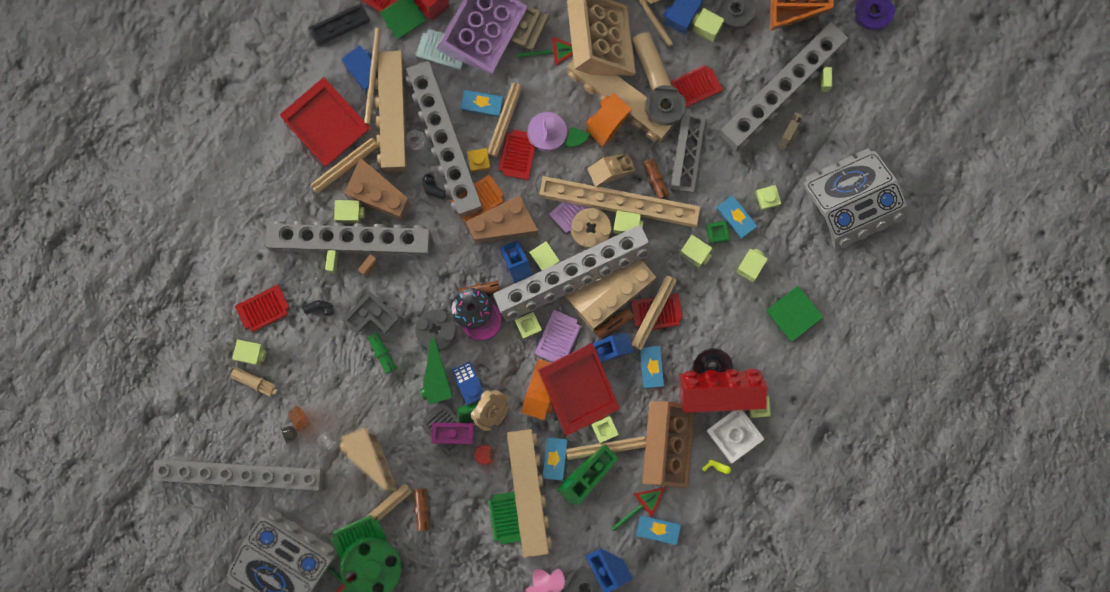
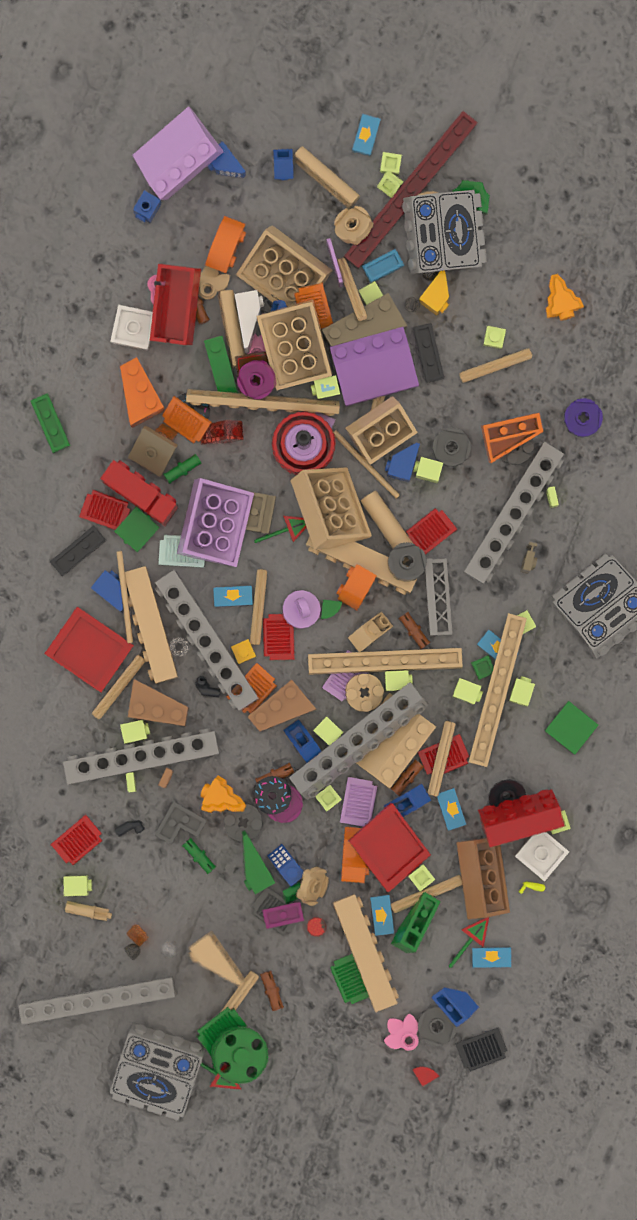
camera: 15 degrees left, 5 degrees up
(418, 297) = (220, 797): none -> light orange rock
(727, 256) = (497, 690): none -> tan plate

